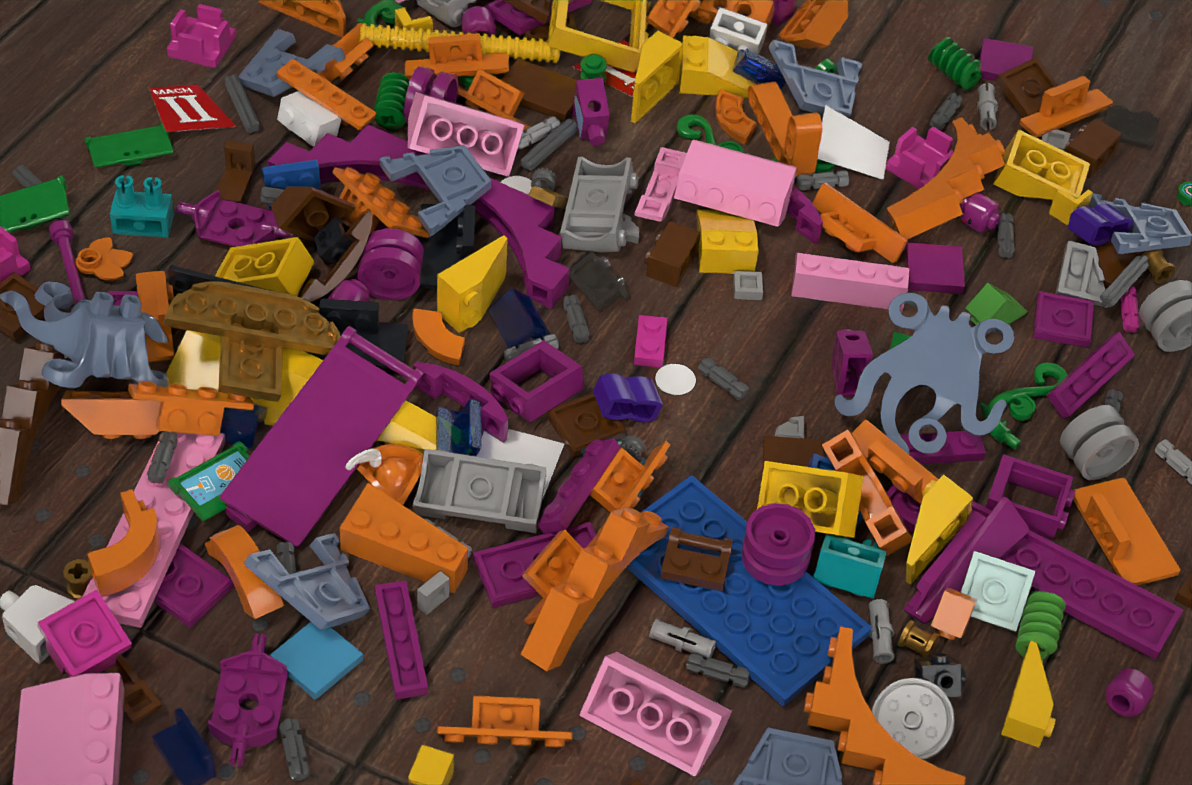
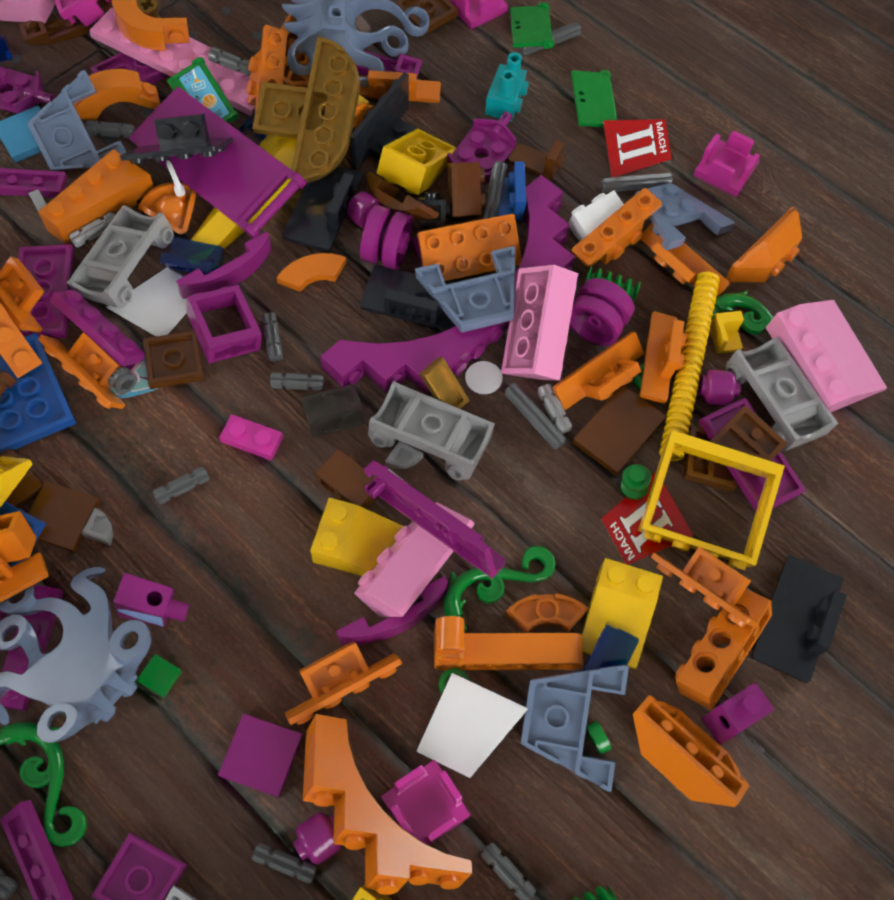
camera: 105 degrees right, 15 degrees up
(62, 235) = (495, 44): magenta piece -> none
(103, 260) = (463, 67): orange plate -> none
(325, 457) = (179, 137): none -> black bracket
(471, 285) = (342, 294): yellow slope -> none
(517, 318) = (307, 336): clear blue panel -> none
(544, 175) = (478, 394): dark grey bush -> none
(591, 121) = (560, 455): magenta torso -> none
(627, 398) = (177, 388): dark purple brick -> none
(656, 72) = (605, 526): yellow slope -> none
(662, 185) = (479, 512): bright pink slope -> none
(675, 379) = (202, 448): white sticker -> none
(690, 184) = (432, 519): none -> magenta piece
(738, 31) = (669, 647): white brick -> none
(747, 285) = (294, 547): light grey tile -> none
(815, 181) = (424, 675): dark grey axle -> none
(848, 281) = (269, 651): bright pink slope -> none
(994, 304) = (171, 798): bright green slope -> none

